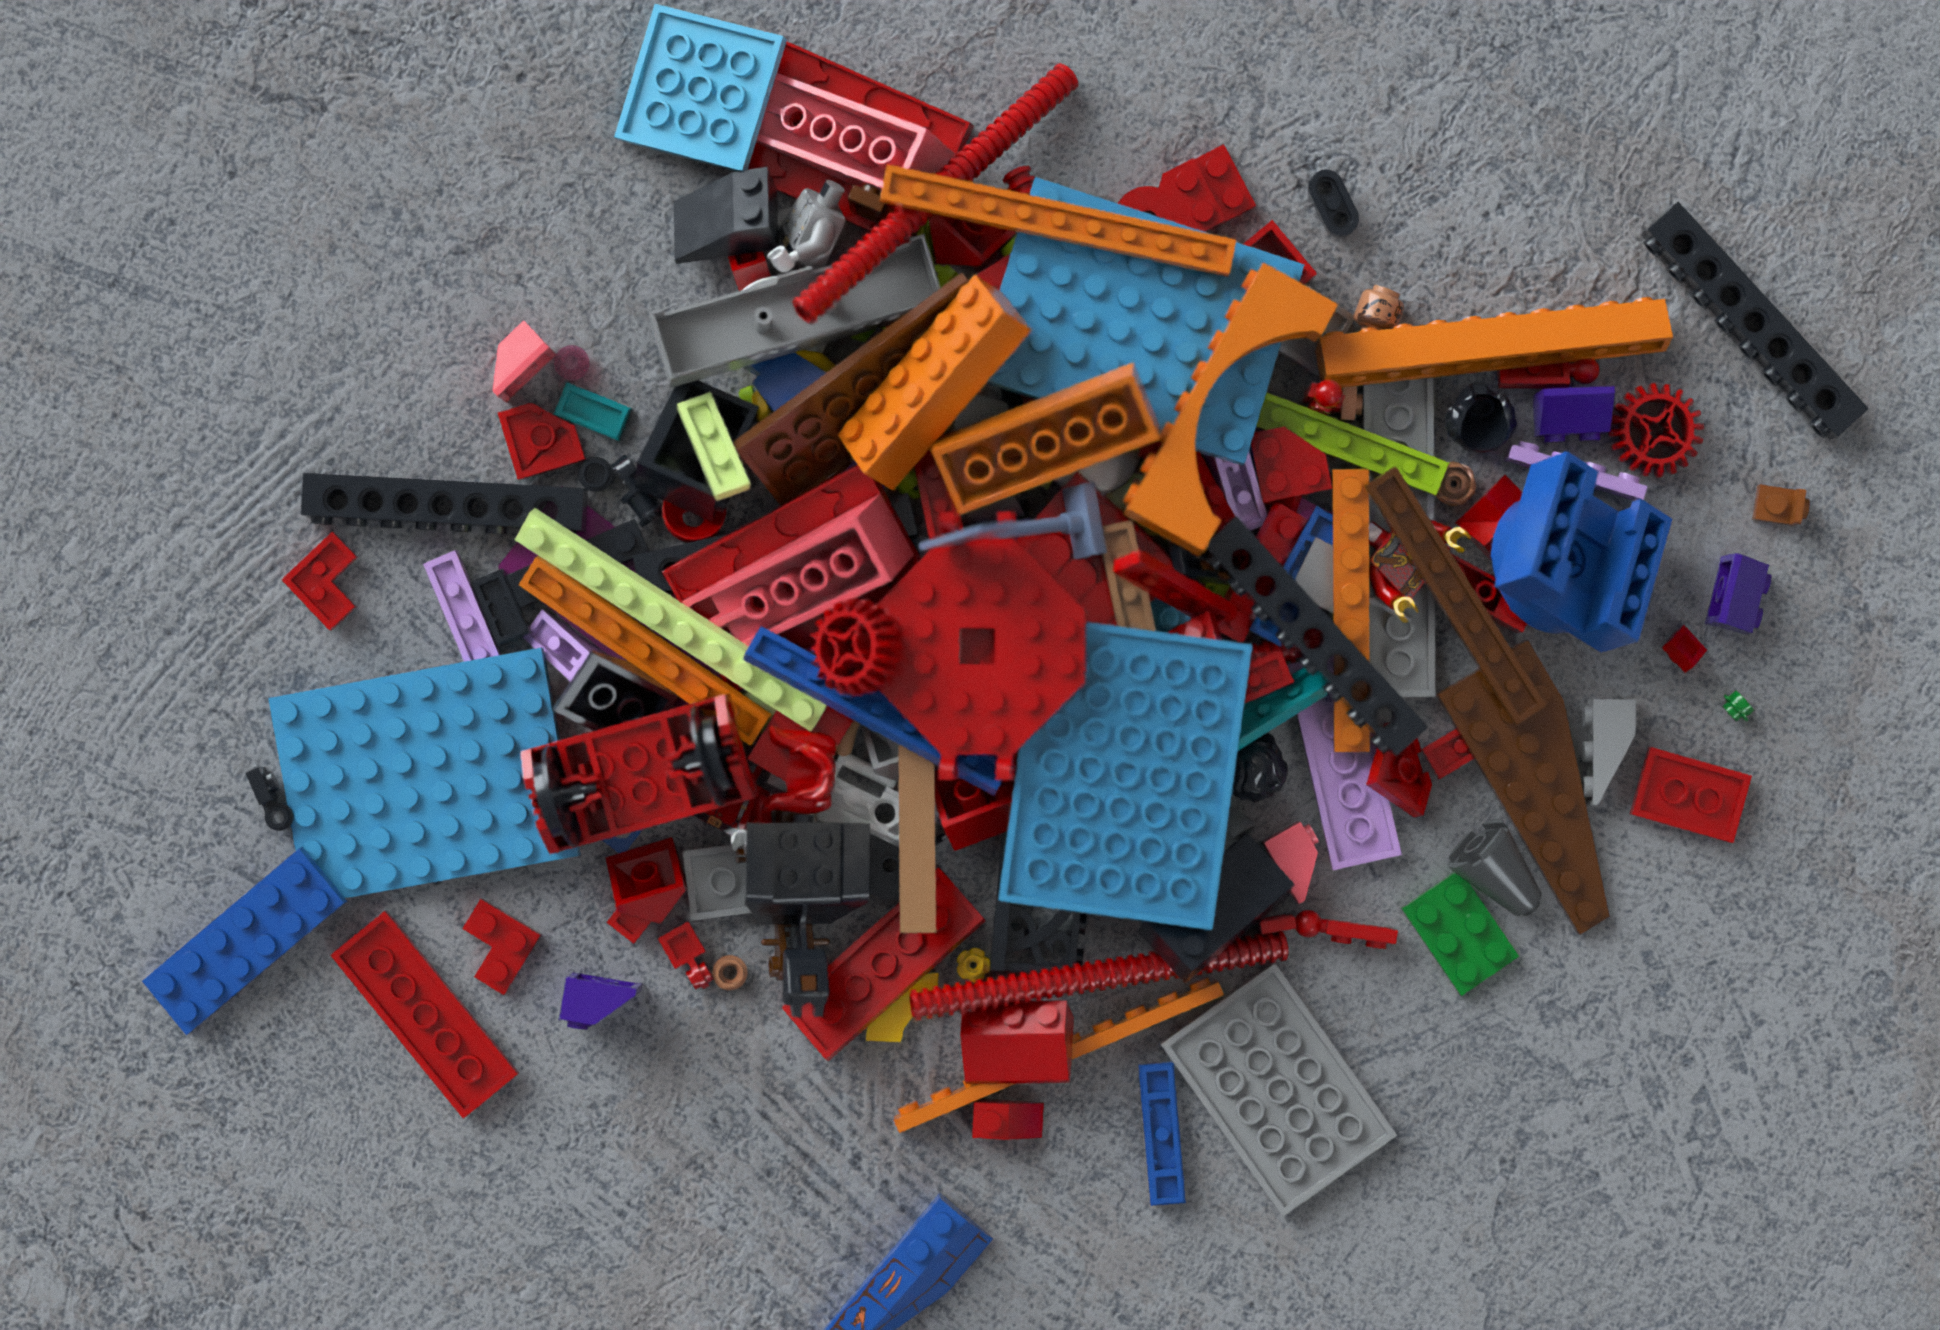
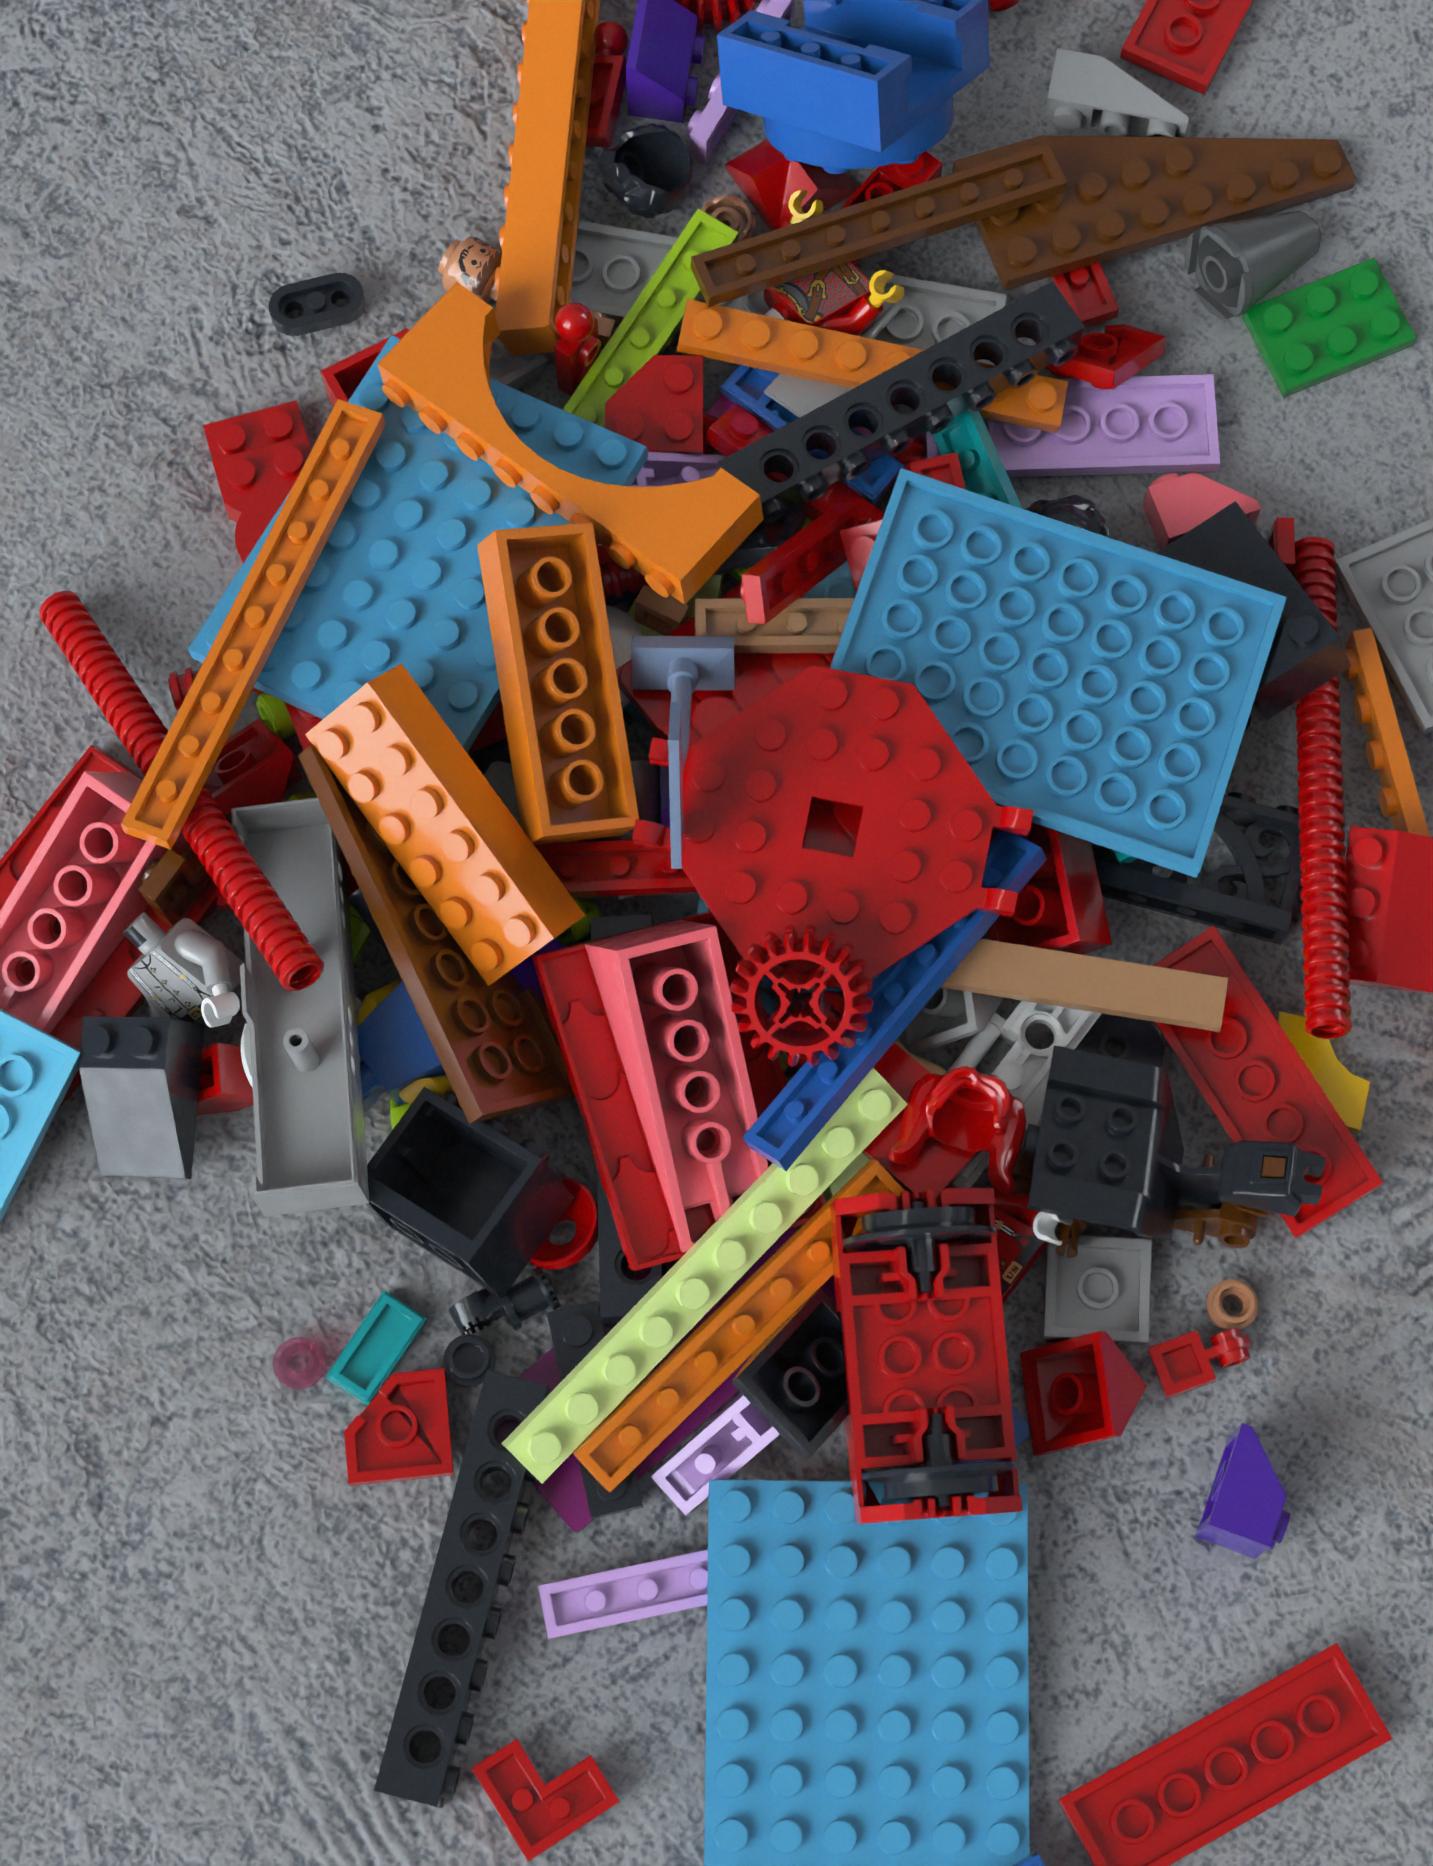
camera: 75 degrees left, 15 degrees down
(501, 607) = (636, 1535): black plate -> none
(509, 941) = (1135, 1621): red plate -> none
(519, 360) = (274, 1432): coral slope -> none
(628, 925) = (1138, 1438): red plate -> none
(713, 446) = (468, 1148): yellowish green plate -> none
(973, 955) = (1268, 974): yellow plate -> none
(1310, 924) = (1306, 465): red plate -> none

